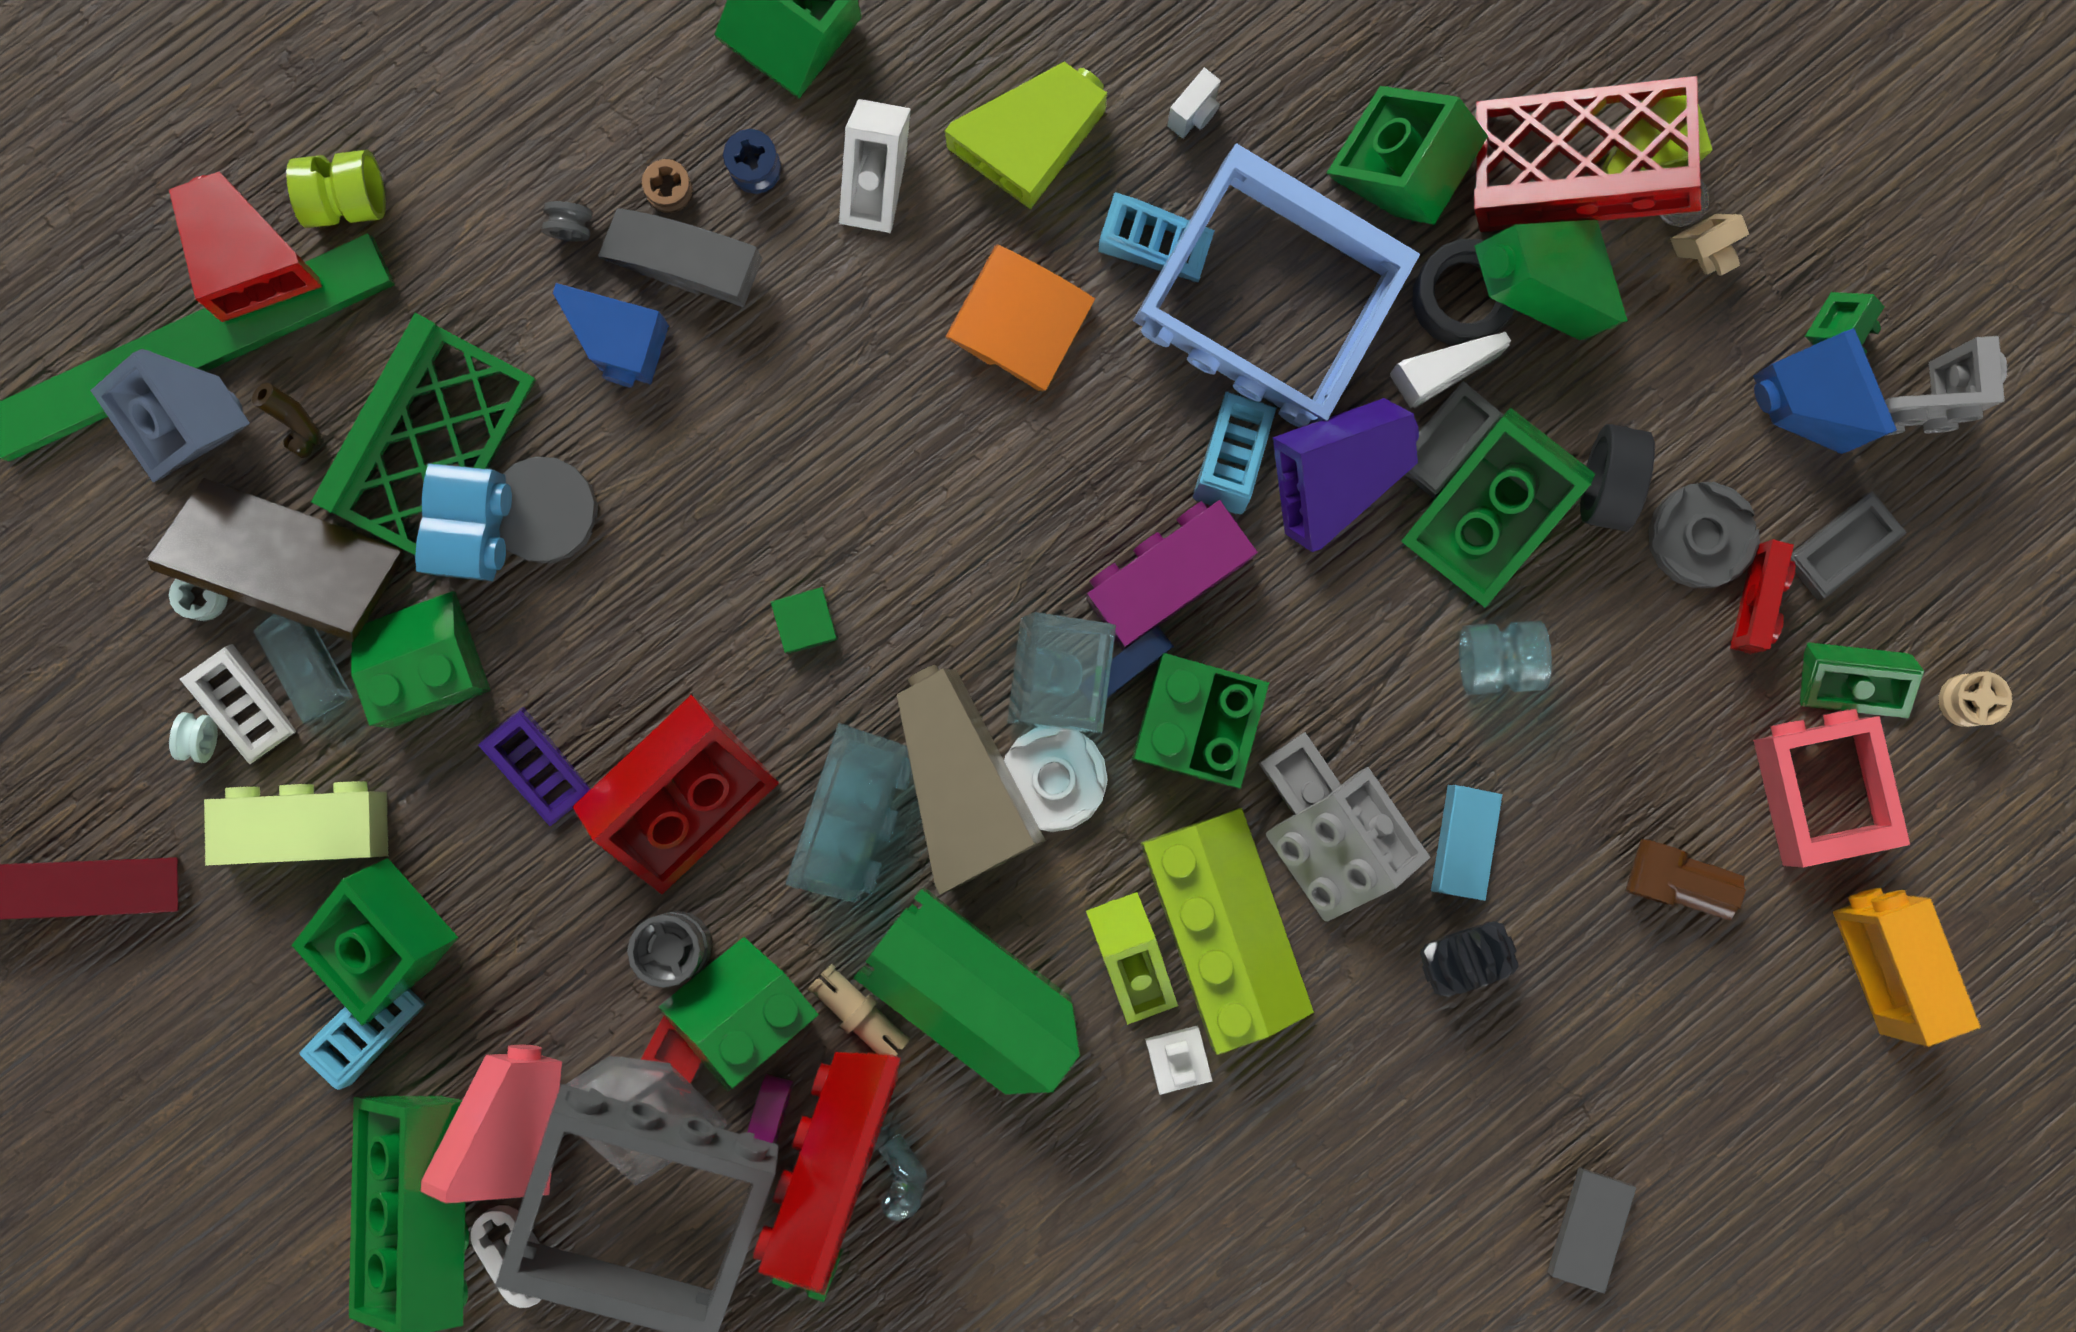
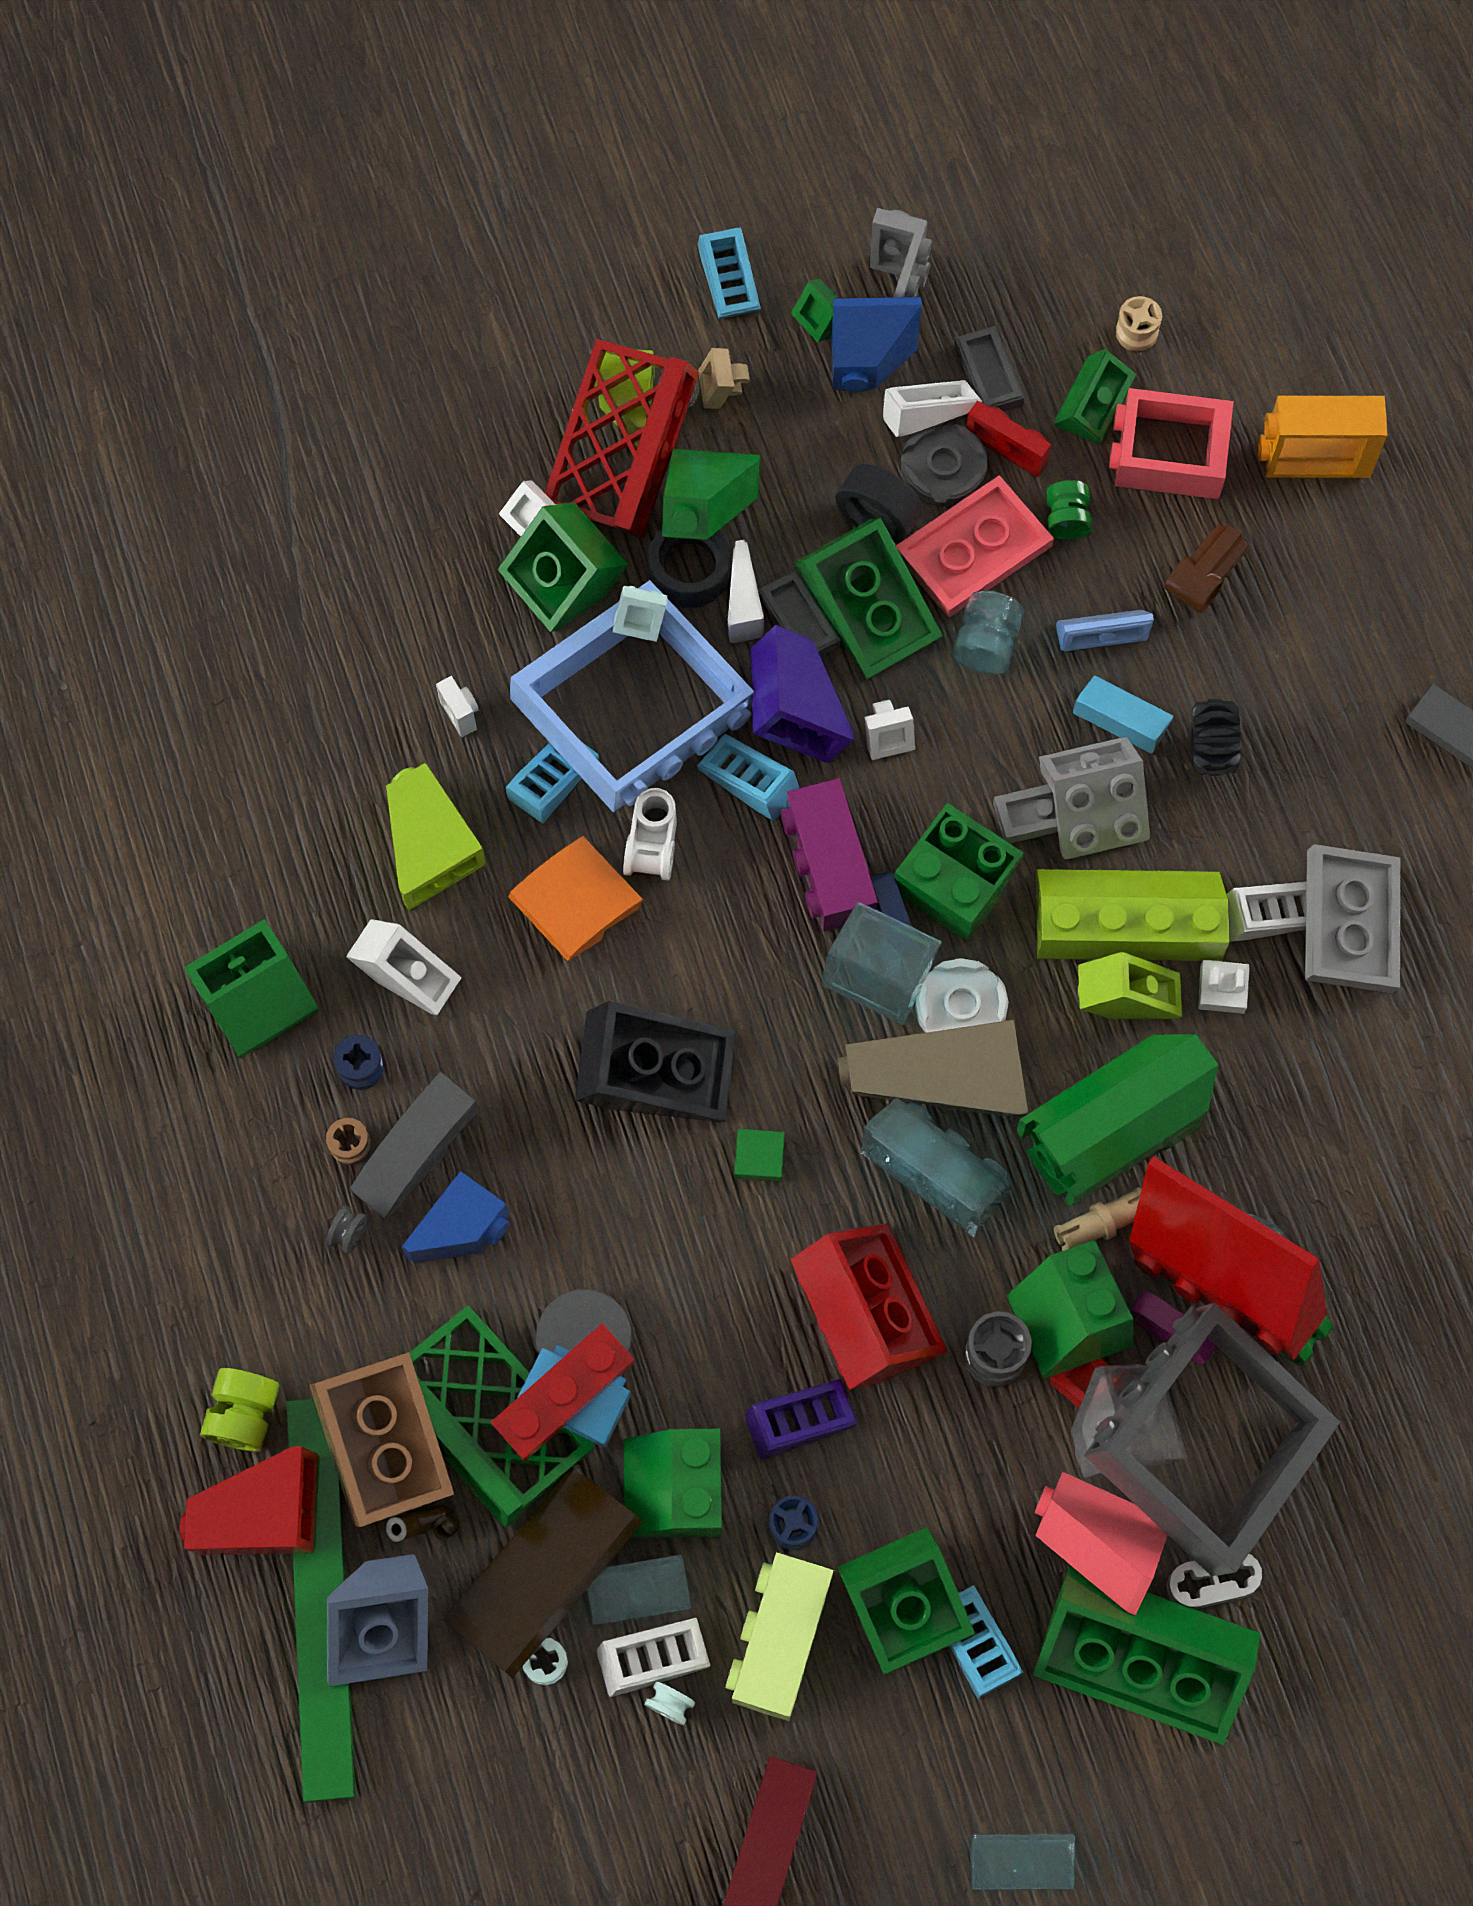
camera: 70 degrees left, 15 degrees down
(163, 1148) = (1022, 1861): none -> clear light blue slope
(339, 338) = (381, 1440): none -> medium nougat slope
(407, 796) = (797, 1514): none -> dark blue wheel
(446, 509) = (563, 1392): none -> red plate
(859, 473) = (654, 1063): none -> black slope
(1115, 373) = (651, 843): none -> white piece
(1270, 1059) = (1246, 917): none -> white slope
(1307, 1182) = (1353, 919): none -> light grey plate
(1343, 587) = (889, 730): none -> white tile
(1367, 255) = (640, 613): none -> light aqua tile
(1467, 81) = (524, 506): none -> white plate
(1564, 787) = (1104, 630): none -> light blue slope
(1610, 604) = (974, 545): none -> coral plate
(1697, 698) = (1069, 510): none -> green wheel
(1770, 490) = (926, 405): none -> white slope
(1891, 178) = (724, 241): none -> medium azure slope

